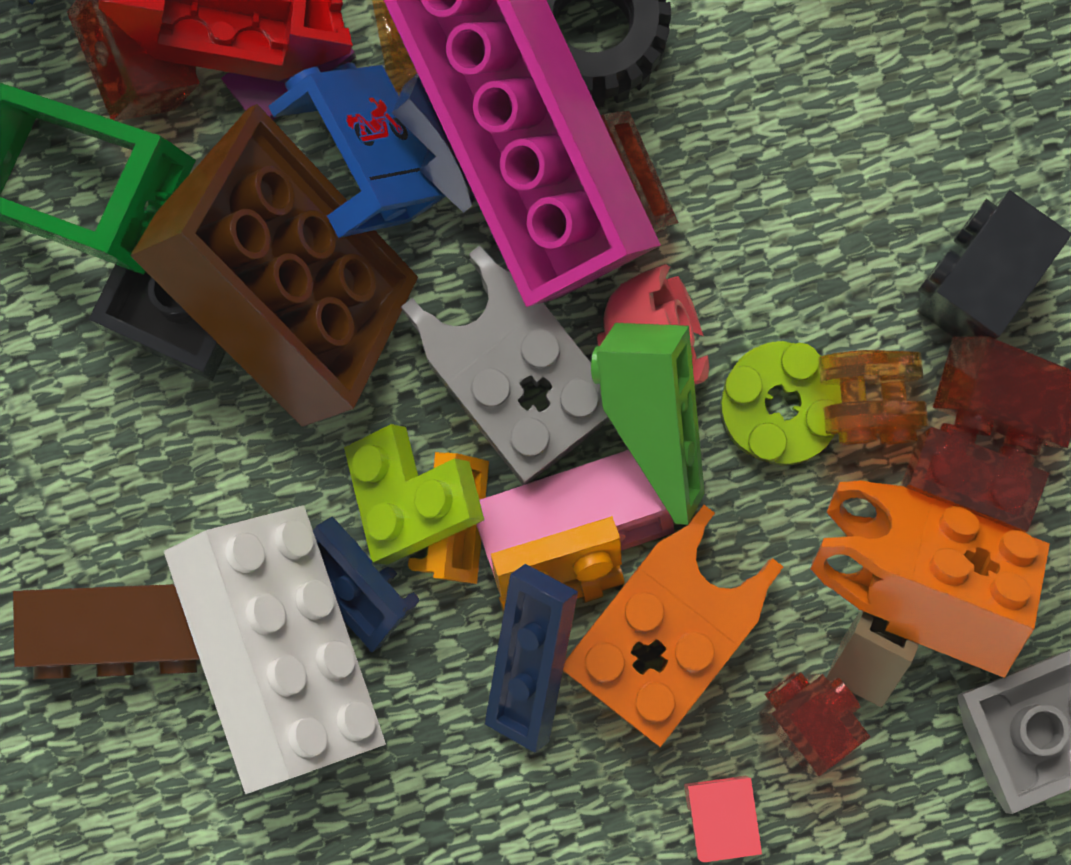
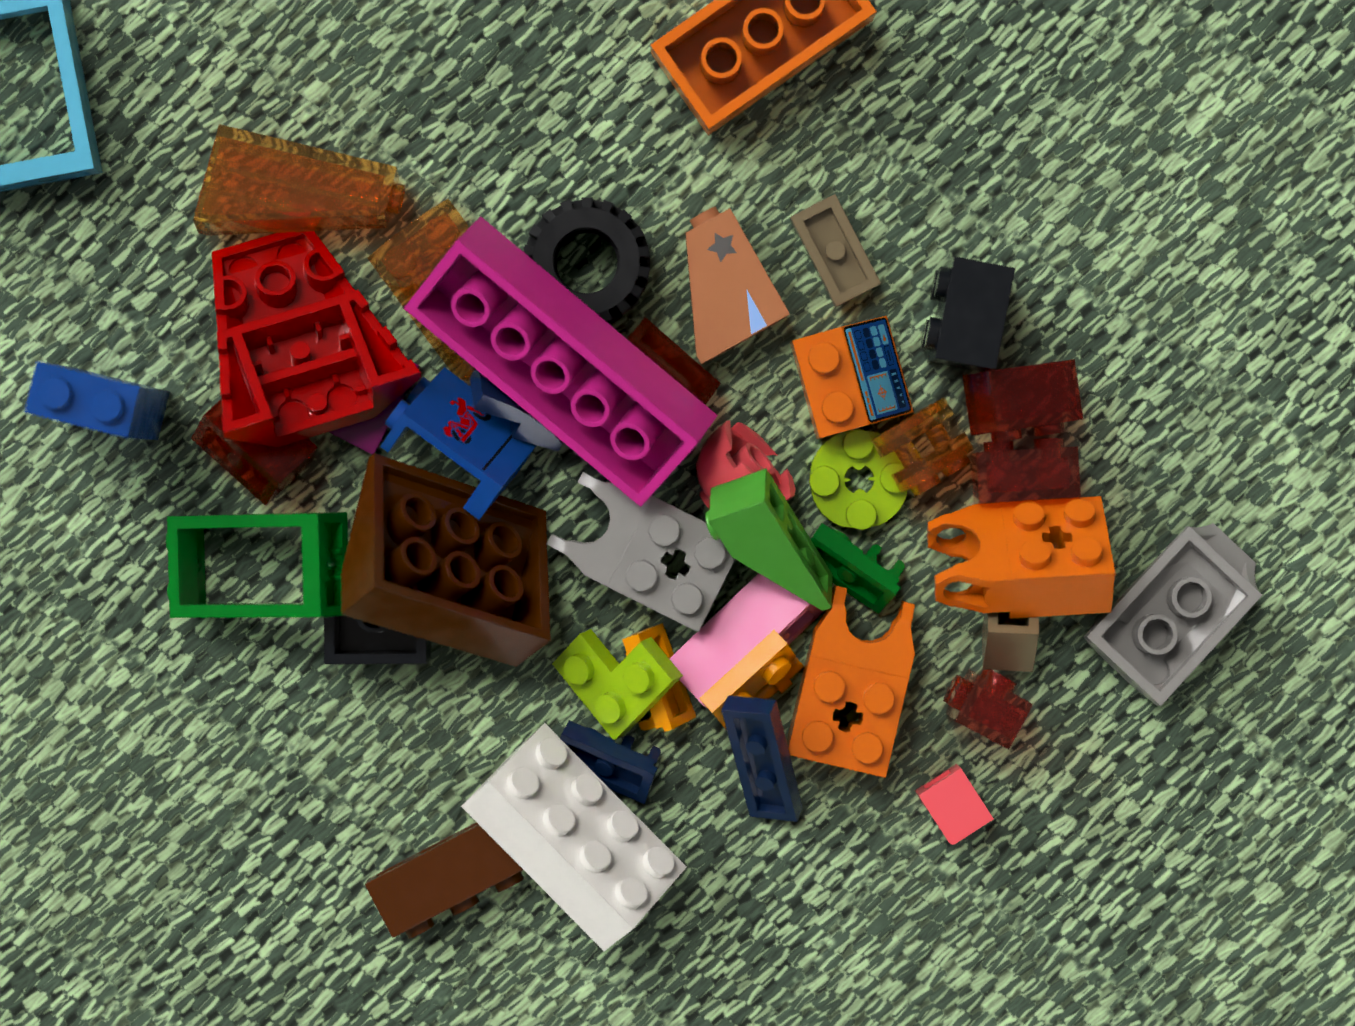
camera: 20 degrees left, 5 degrees up
(736, 124) = (727, 286): none -> nougat slope
(738, 506) = (857, 571): none -> green plate
(825, 282) = (851, 376): none -> orange slope
(871, 139) = (835, 250): none -> dark tan plate

